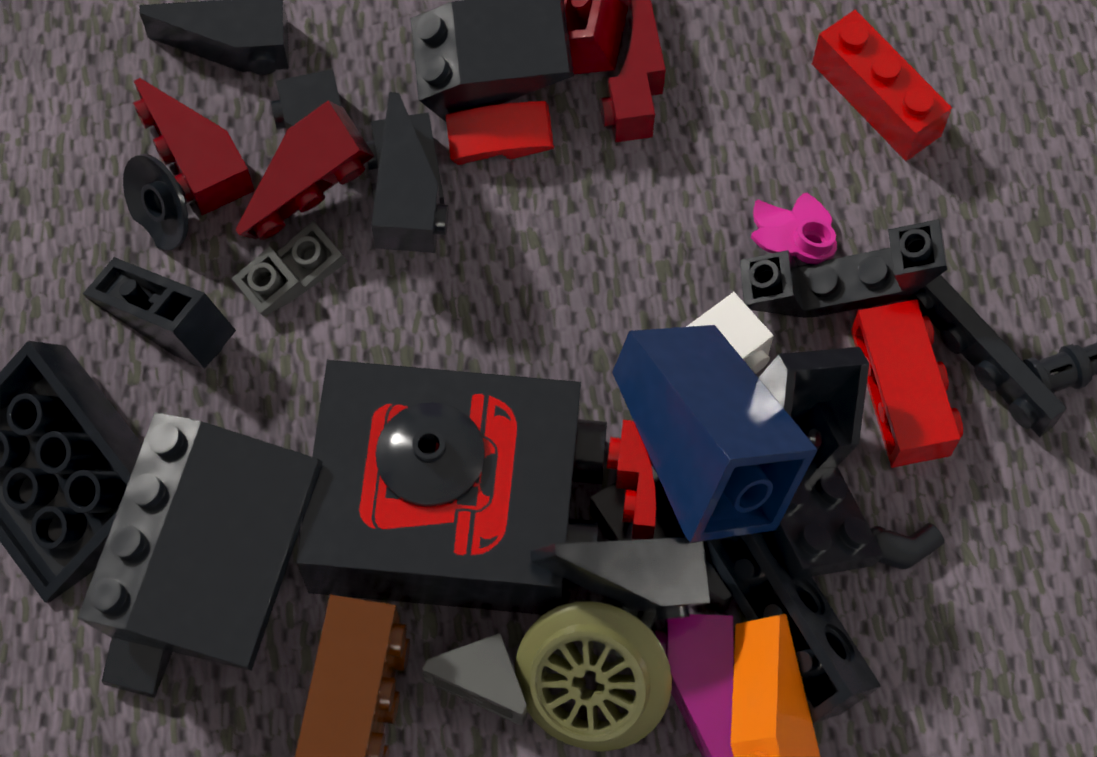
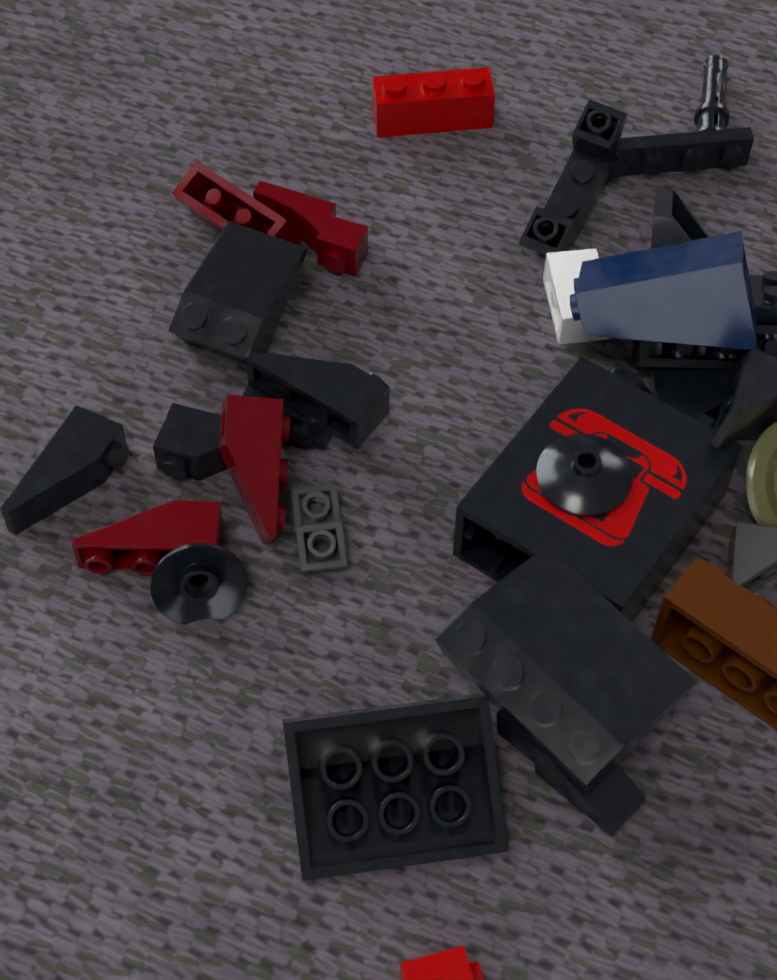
camera: 60 degrees left, 10 degrees down
(162, 311) = (295, 633): black slope -> none
(499, 129) = (304, 326): red slope -> none
(634, 473) = (665, 365): red slope -> none
(802, 231) = (509, 204): dark pink plate -> none
(907, 383) = (633, 196): red brick -> none

